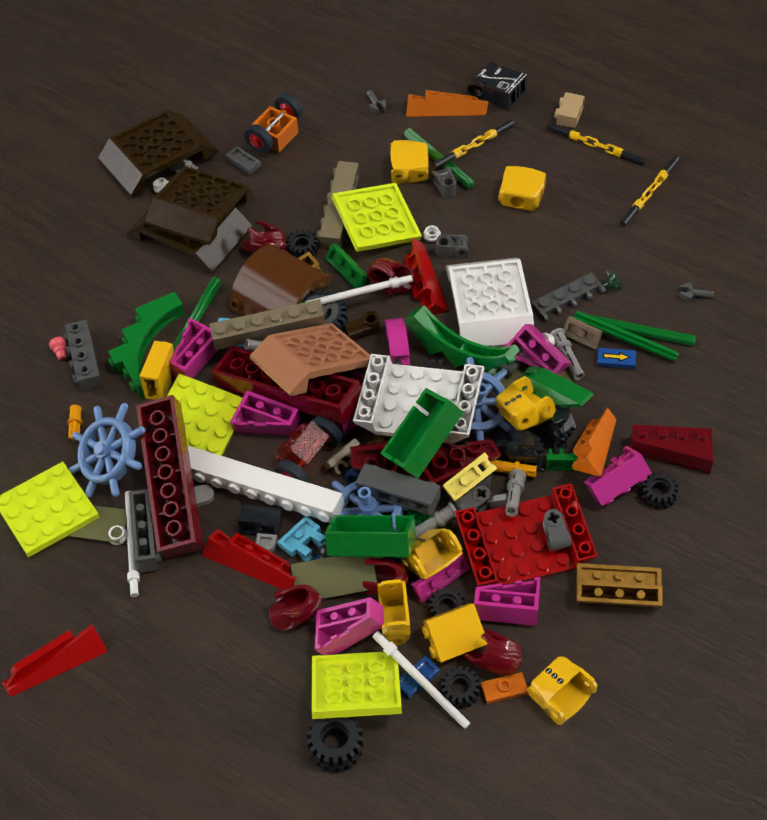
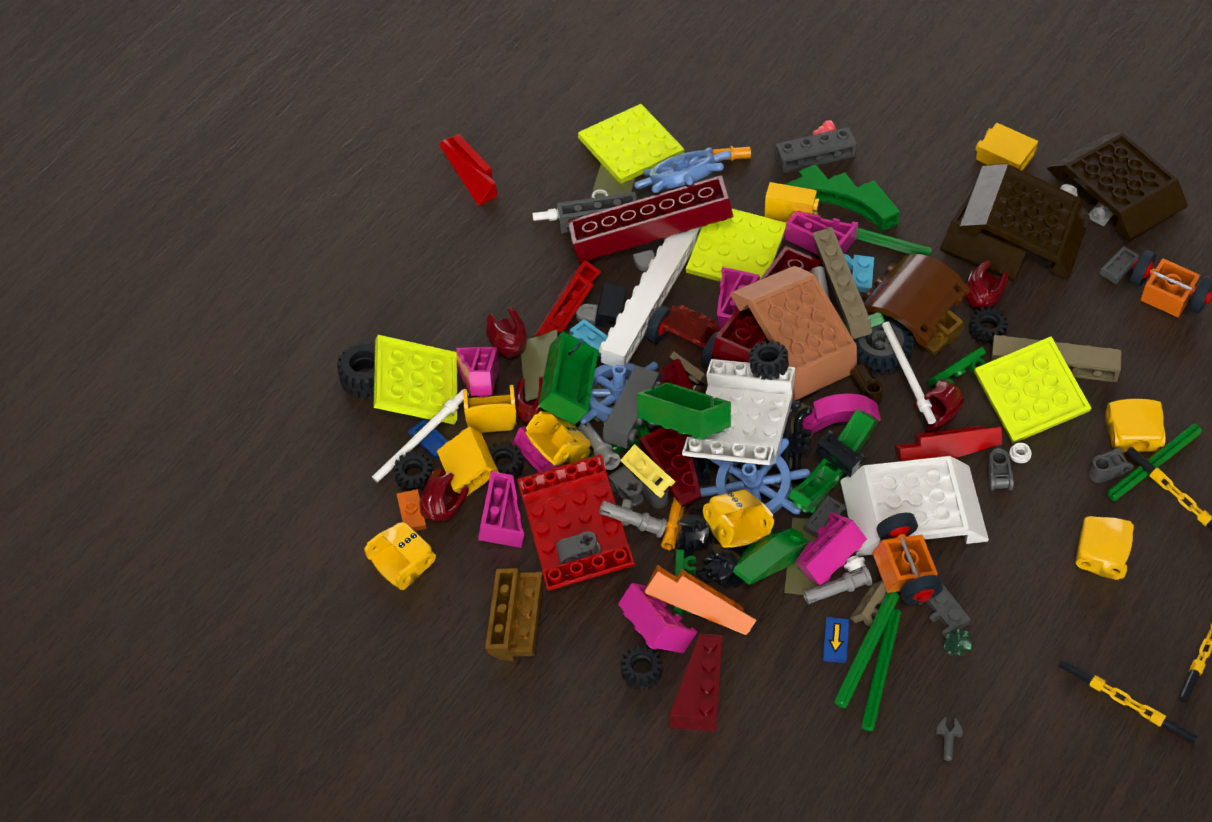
camera: 90 degrees right, 0 degrees up
(106, 220) = (1006, 147): none -> yellow brick
(365, 358) = (768, 351): none -> black tyre
(454, 333) = (839, 454): none -> black hinge
(558, 296) = (906, 560): none -> brick

